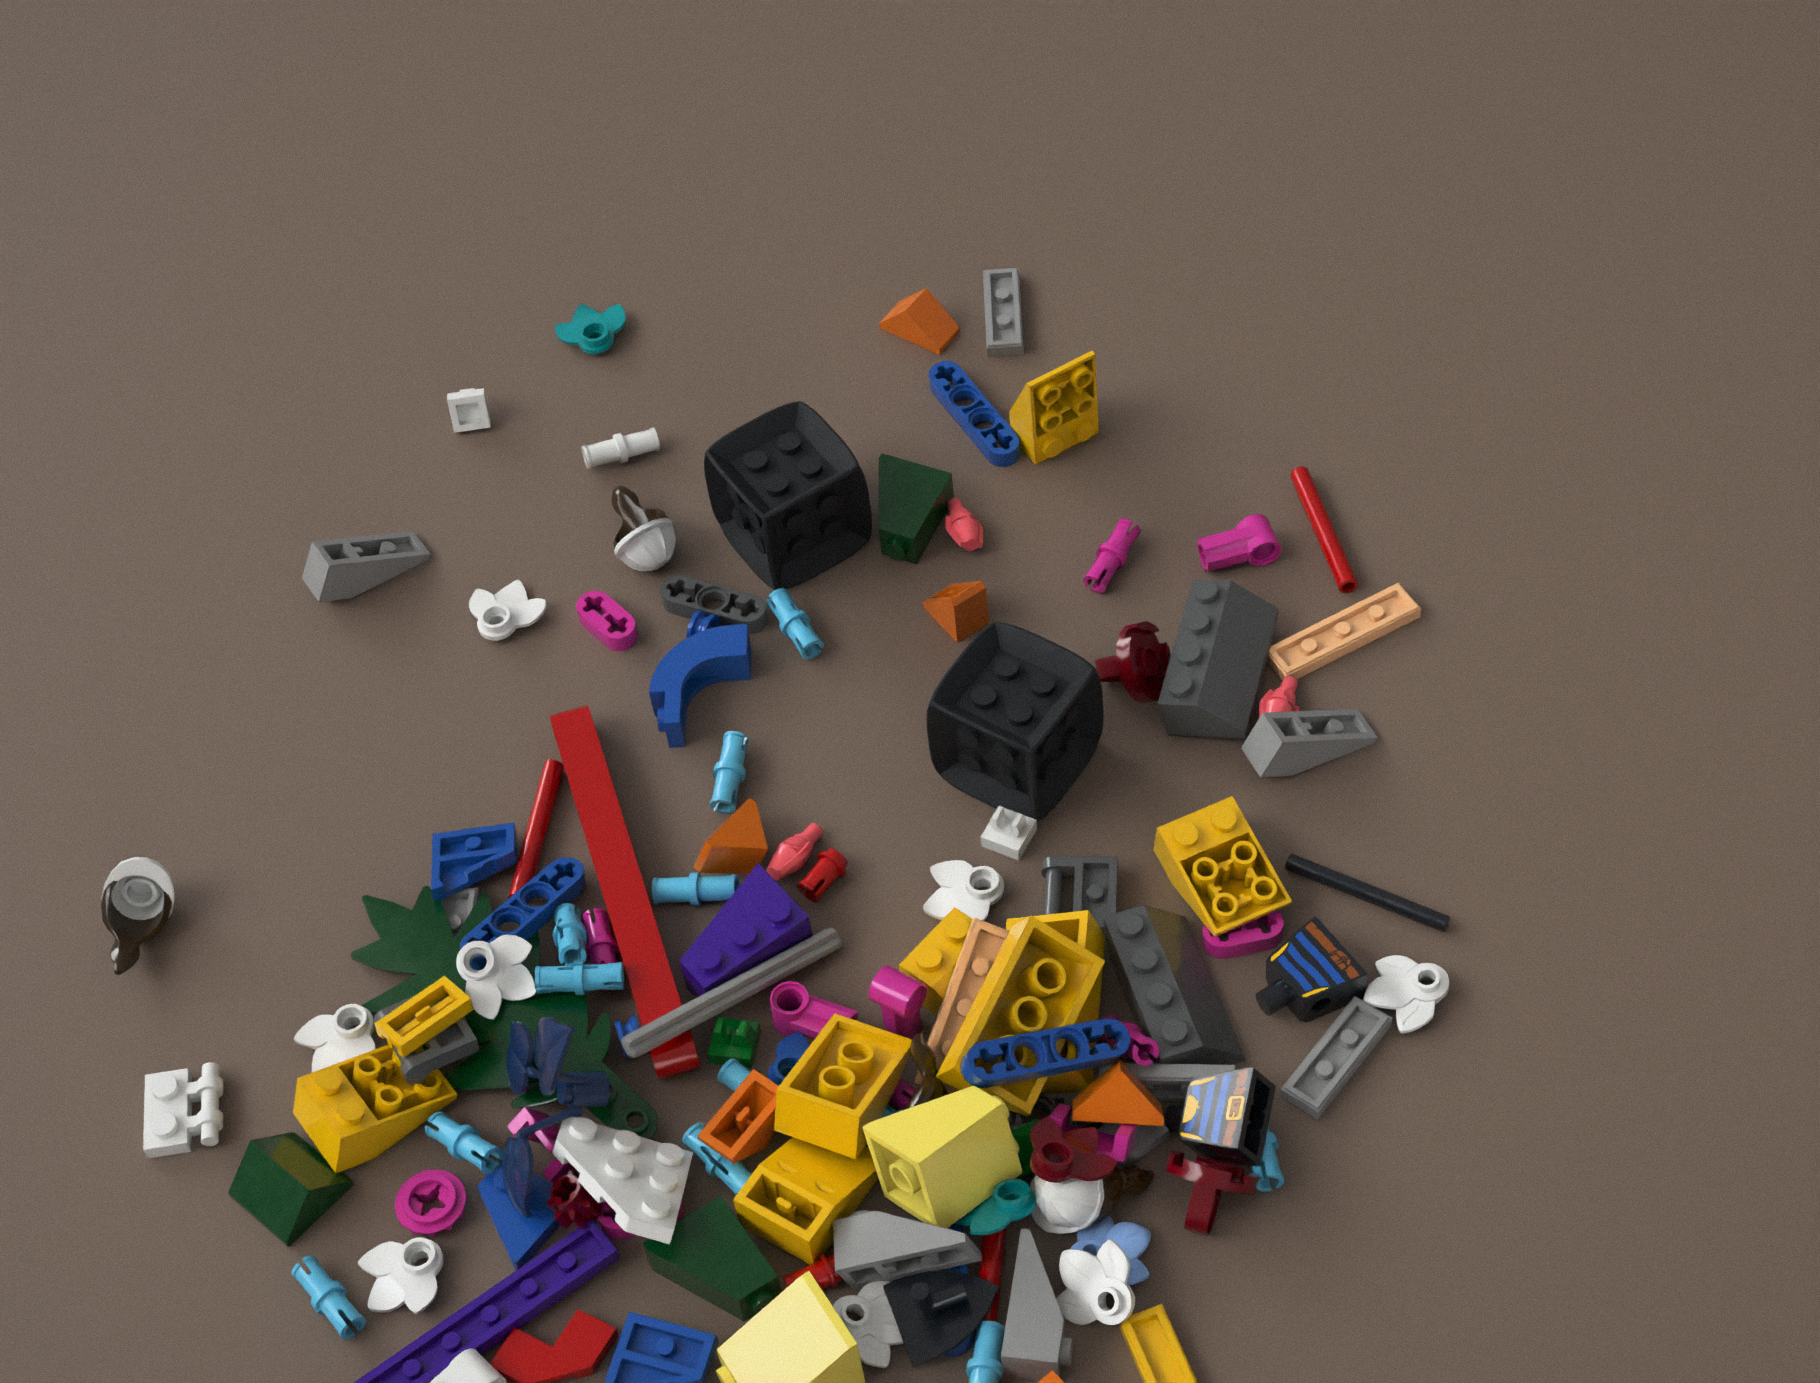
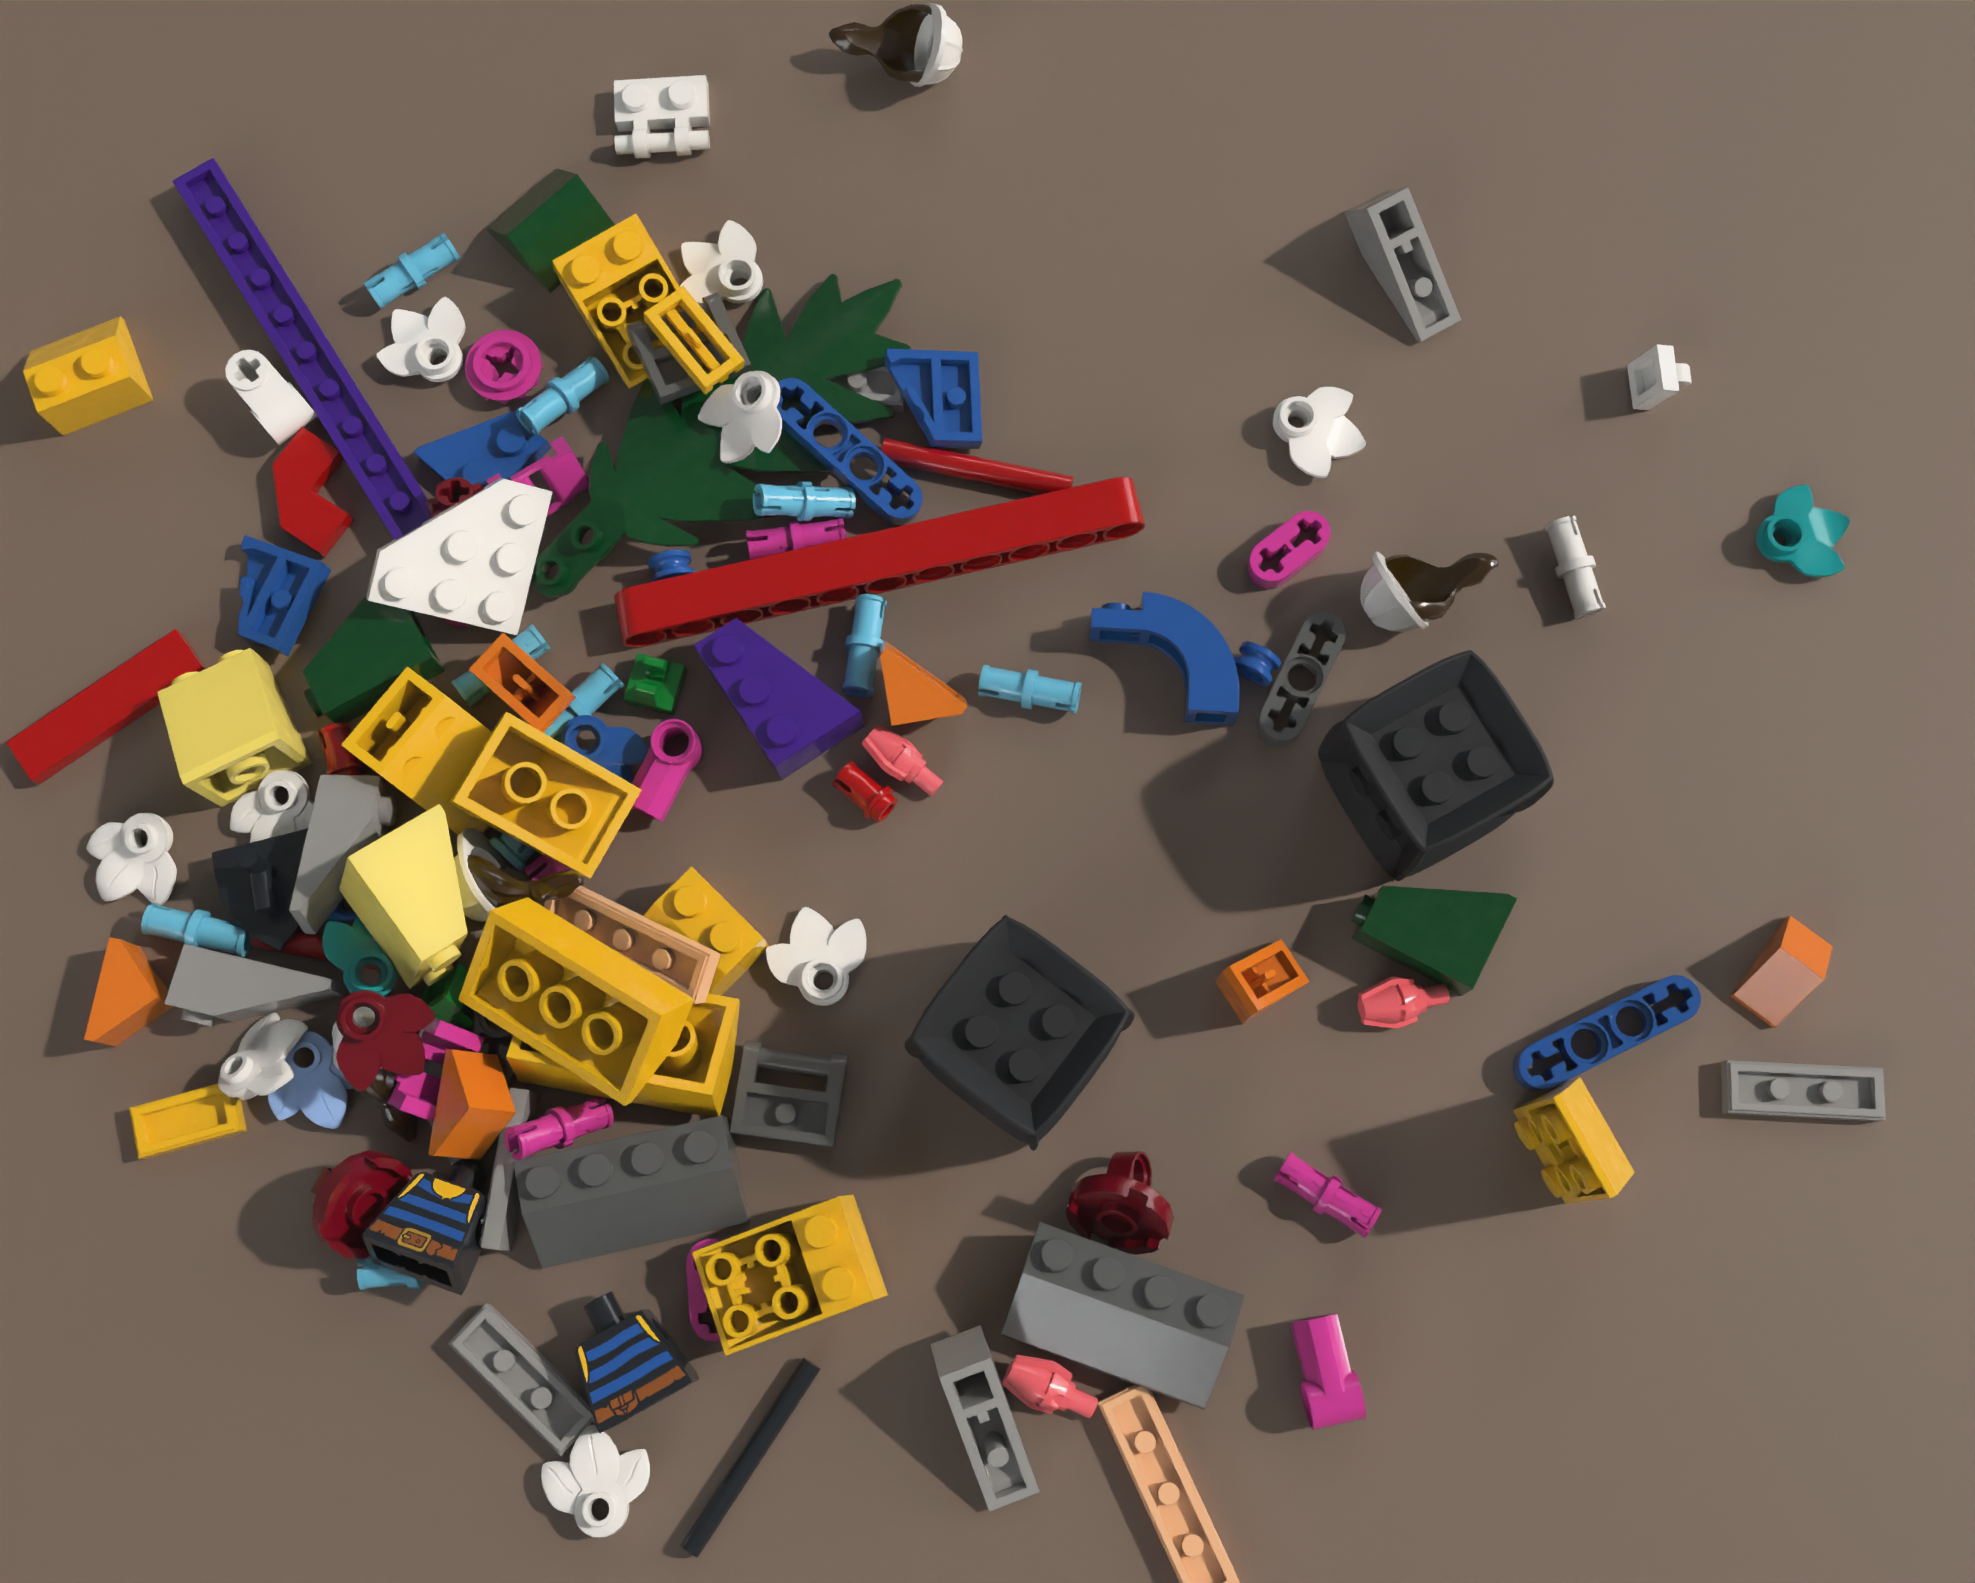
camera: 90 degrees right, 25 degrees up
(574, 1089) = (562, 500): dark blue plant -> none
(579, 978) = (736, 509): medium azure pin -> none
(730, 993) = (695, 678): light grey axle -> none
(795, 623) = (1254, 776): medium azure pin -> none
(899, 1000) = (645, 863): dark pink piece -> none
(1008, 833) = (897, 1016): white tile -> none
(1043, 1046) = (496, 1023): blue beam -> none
(1324, 530) = (1352, 1495): red piece -> none

